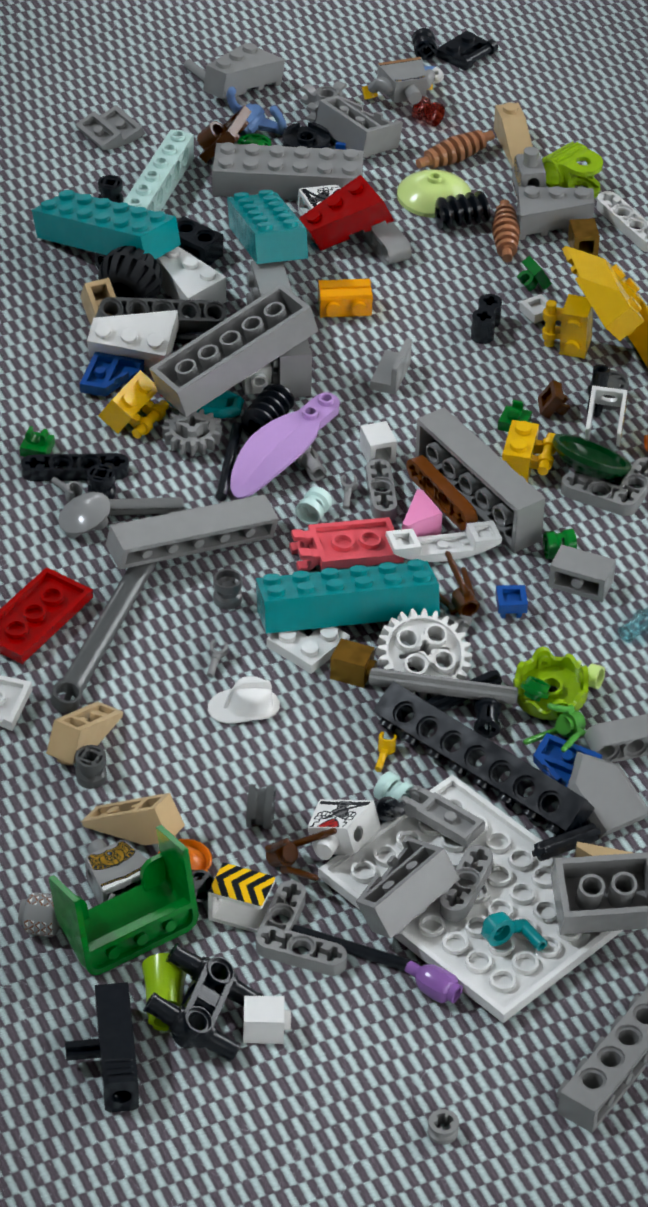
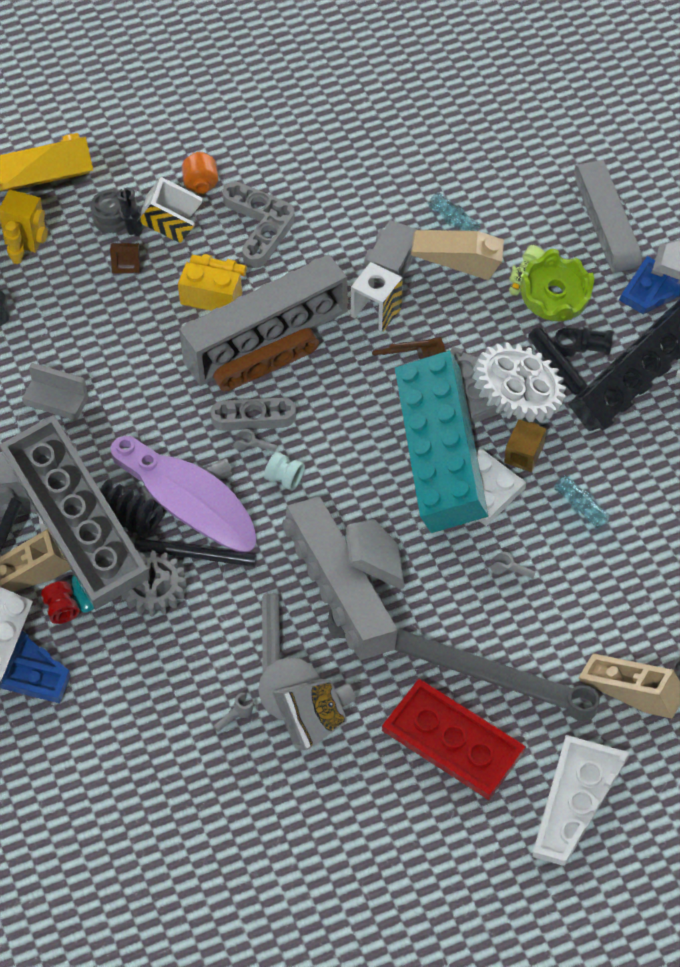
camera: 85 degrees left, 15 degrees up
(34, 466) = (195, 705): black beam -> none
(37, 443) = (155, 746): green tile -> none
(59, 518) = (313, 710): none -> light grey torso
(101, 480) = (237, 680): black wheel -> none
(129, 402) = (105, 641): yellow brick -> none
(219, 548) = (374, 552): none -> light grey tile
(227, 589) = (415, 551): flat silver wheel -> none
(246, 701) = (575, 546): white piece -> none
(290, 704) = (582, 501): none -> clear light blue pin
(343, 544) = (341, 445): coral tile -> none
(378, 442) = (185, 410): white brick -> none
(385, 748) = (632, 427): yellow hand -> none
(423, 516) = (307, 378): bright pink slope -> none
(432, 548) = (342, 359): white slope -> none
(444, 685) = (568, 368): light grey axle -> none
(511, 413) = (147, 294): green tile -> none
(511, 600) = (437, 309): blue tile -> none
(516, 550) = (388, 296): none -> white piece
(535, 688) = (574, 293): green plate -> none
(553, 541) = (351, 263): green wheel -> none
(567, 724) = (606, 280): bright green plant -> none
(584, 611) = (460, 250): none -> tan slope
(590, 457) = (228, 228): dark green dish -> none

